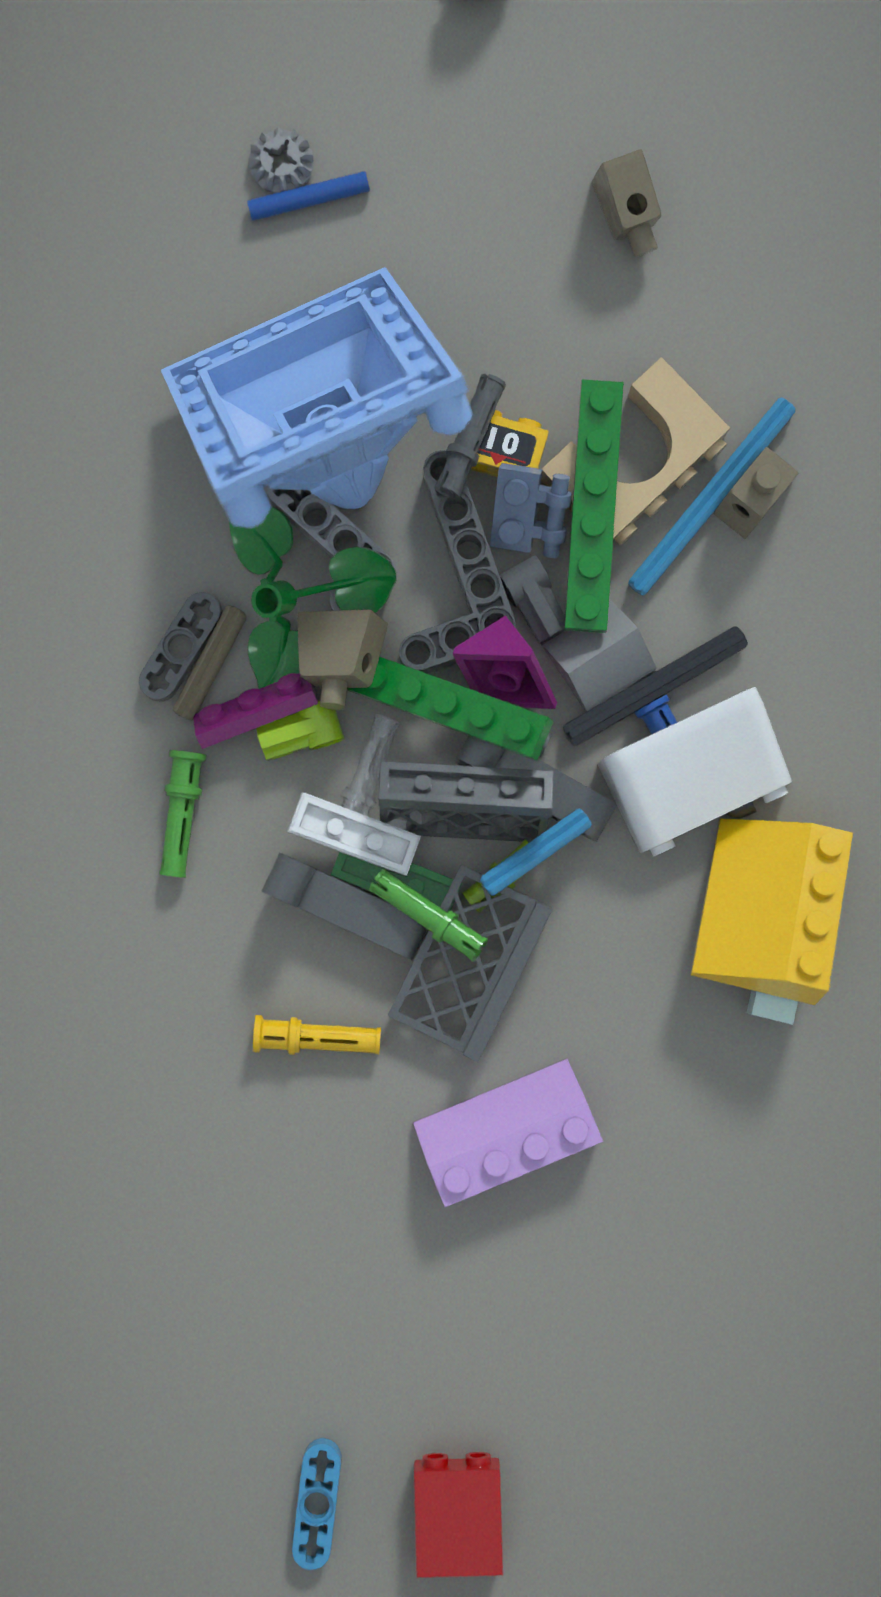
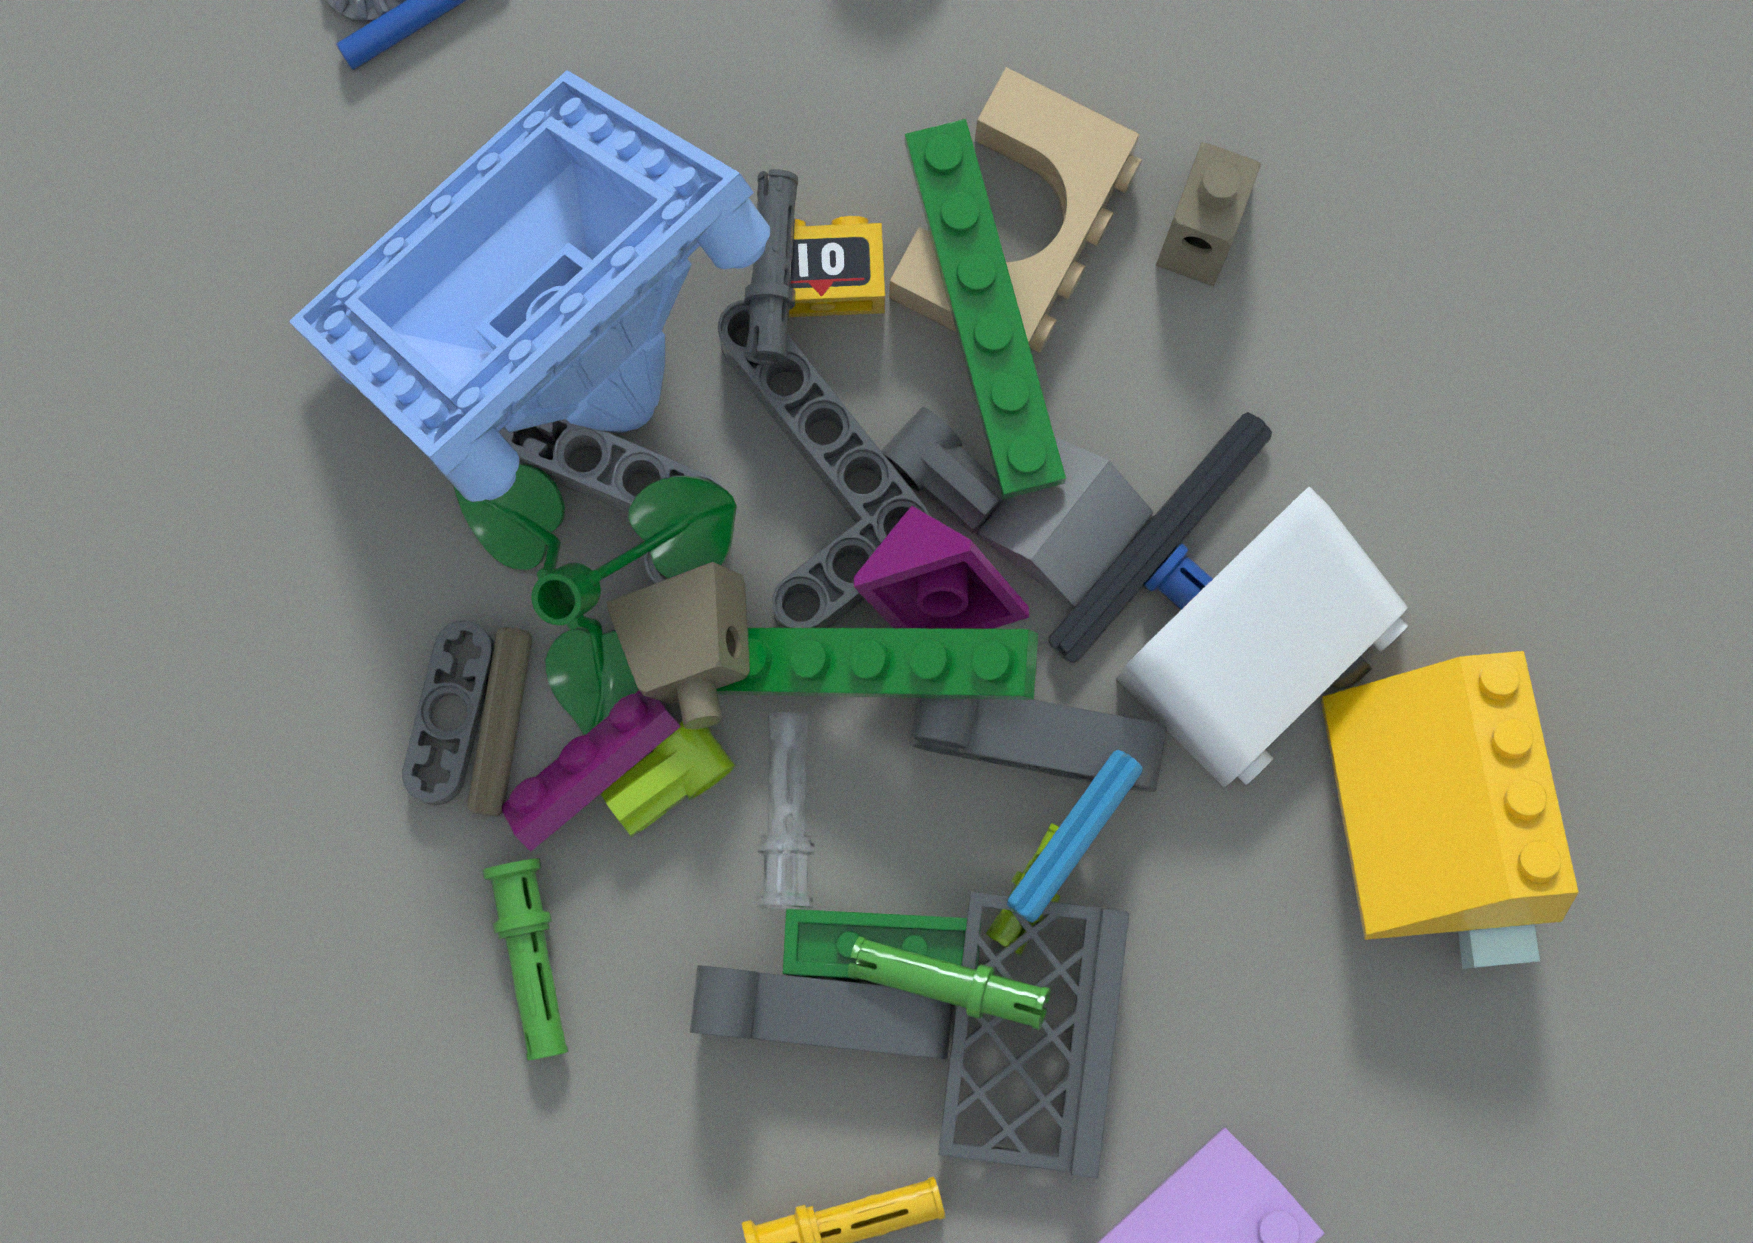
camera: 20 degrees left, 5 degrees down
(353, 834) = (797, 901): white tile -> none
(470, 789) = (954, 774): dark grey fence -> none
(516, 510) = (873, 347): sand blue plate -> none
(711, 496) = (1145, 242): dark azure axle -> none

